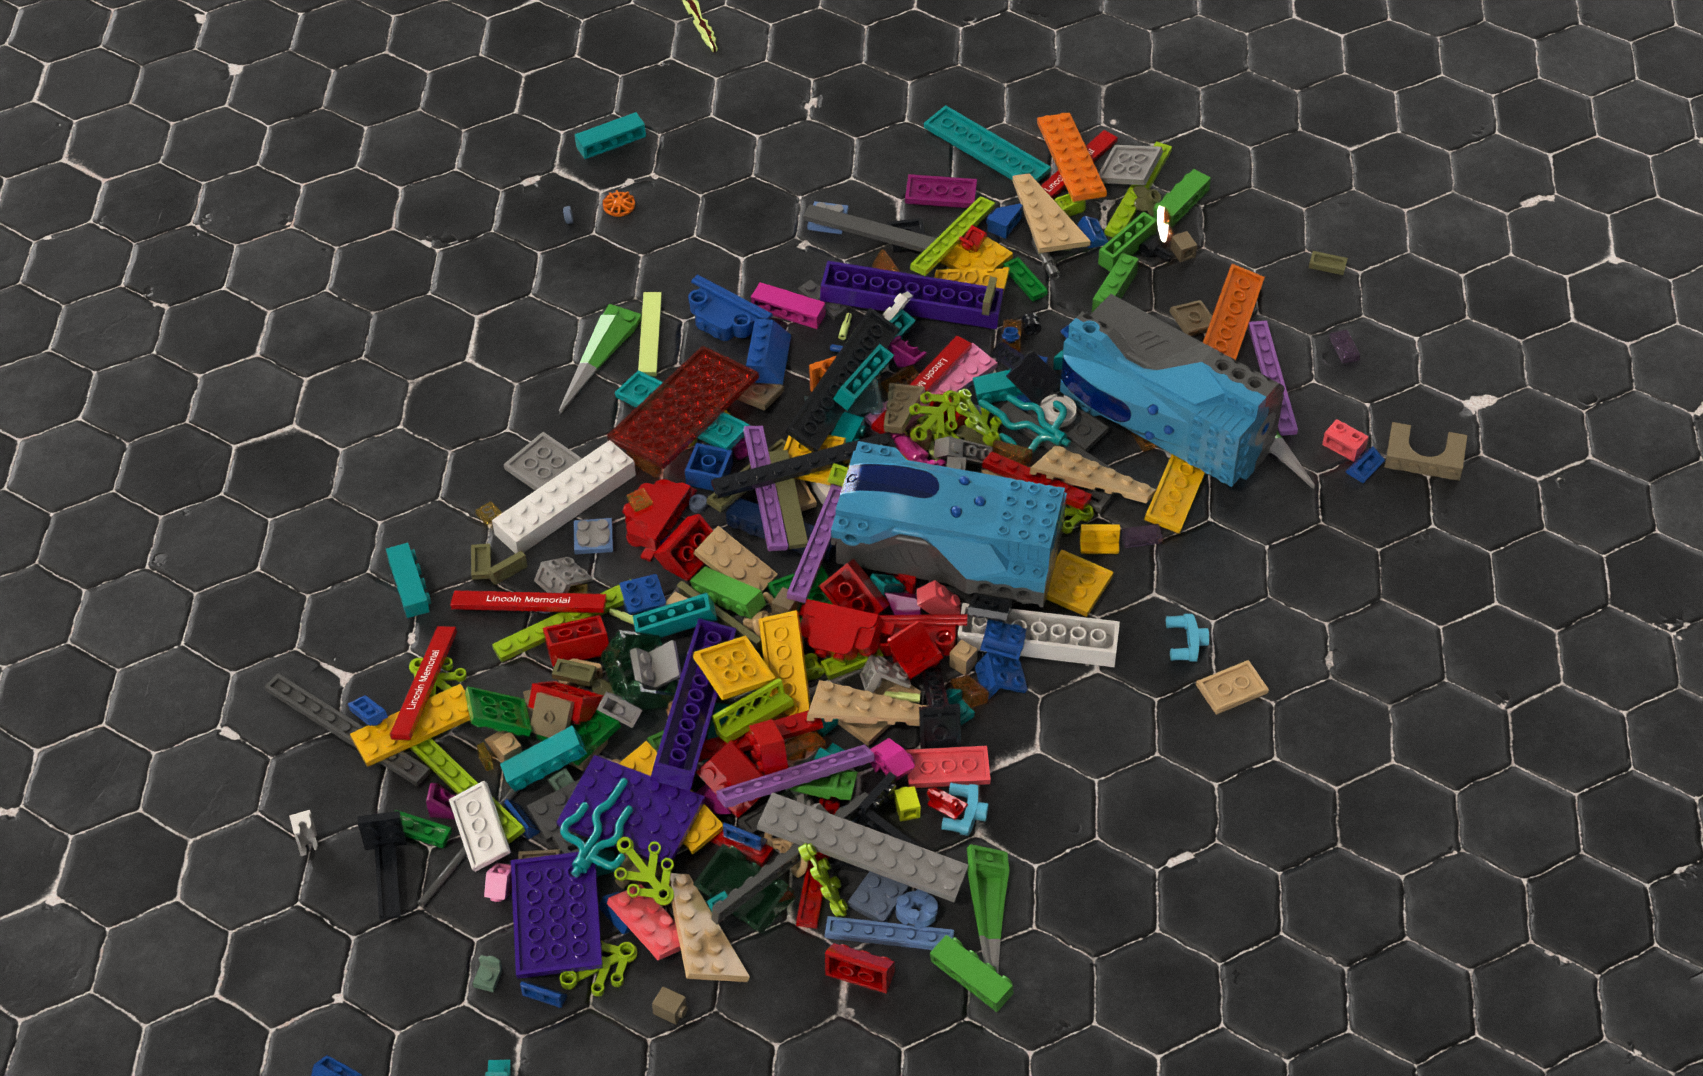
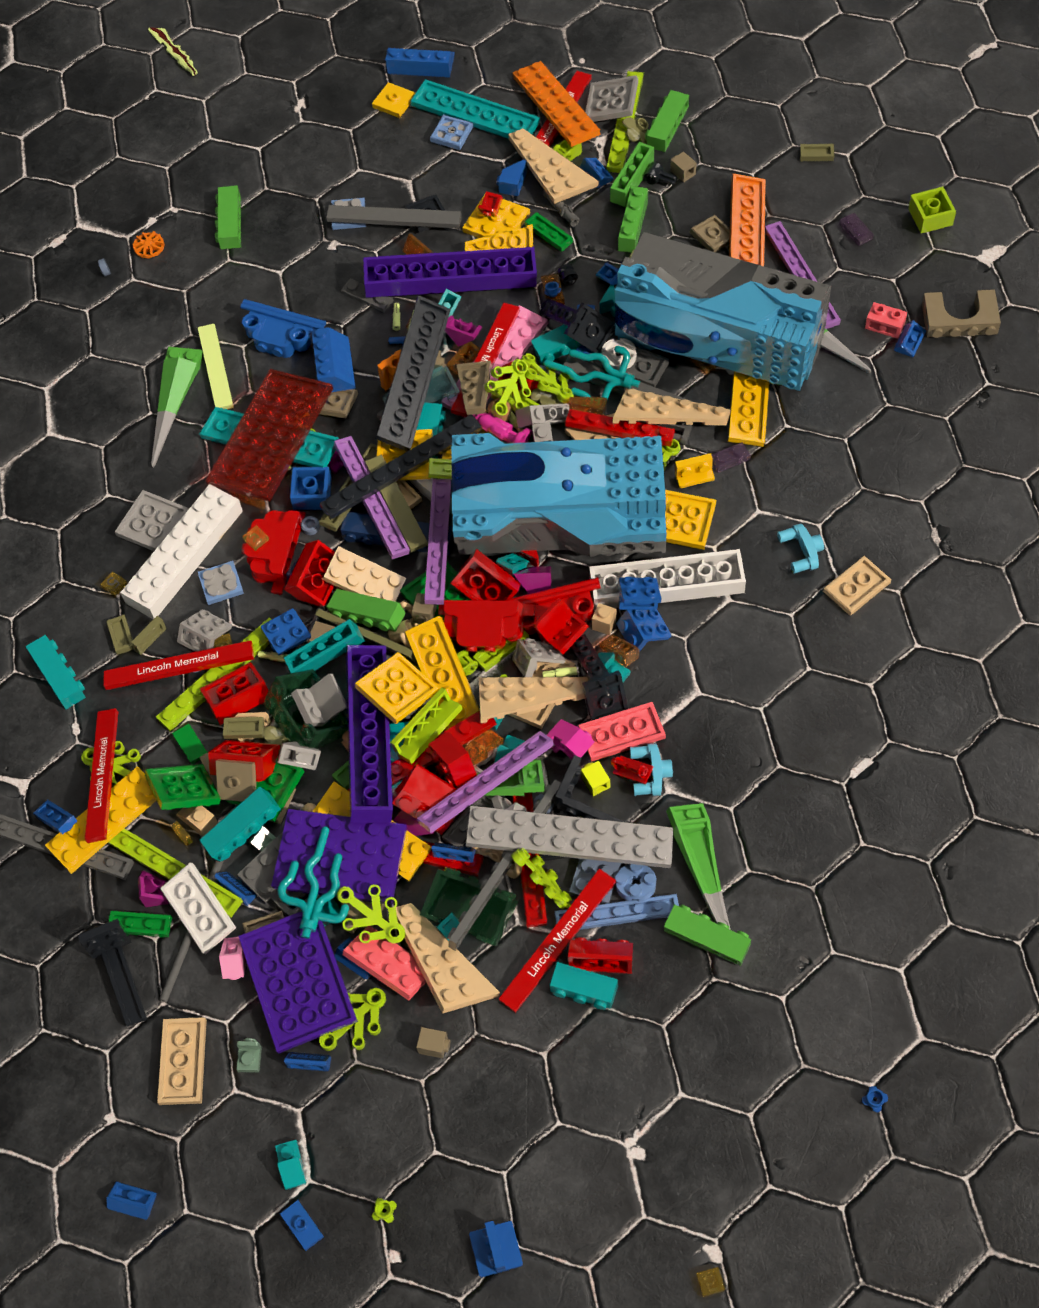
camera: 10 degrees left, 10 degrees up
(304, 830) = (27, 957): white hinge -> none
(422, 962) = (182, 1061): none -> tan plate
(517, 677) = (189, 743): none -> green tile
(610, 135) = (121, 179): teal brick -> none
(706, 194) = (229, 217): none -> bright green brick
(789, 305) = (338, 308): dark pink brick -> none
(817, 944) = (557, 940): none -> red tile
(834, 990) = (583, 986): none -> teal brick
(863, 377) = (433, 366): teal brick -> none
(900, 302) = (443, 283): white plate -> none
(907, 118) = (393, 100): none -> yellow plate
(937, 599) = (565, 569): coral brick -> none
(940, 191) = (445, 164): magenta plate -> none
(945, 87) = (419, 62): none -> blue slope
(950, 237) = (469, 207): lime plate -> none
(956, 162) = (451, 132): none -> medium blue piece
(989, 296) = (524, 257): olive tile -> none
(990, 607) = (618, 566): black plate -> none
(1164, 230) = (662, 155): slope -> none
(1428, 344) = (932, 210): none -> lime brick

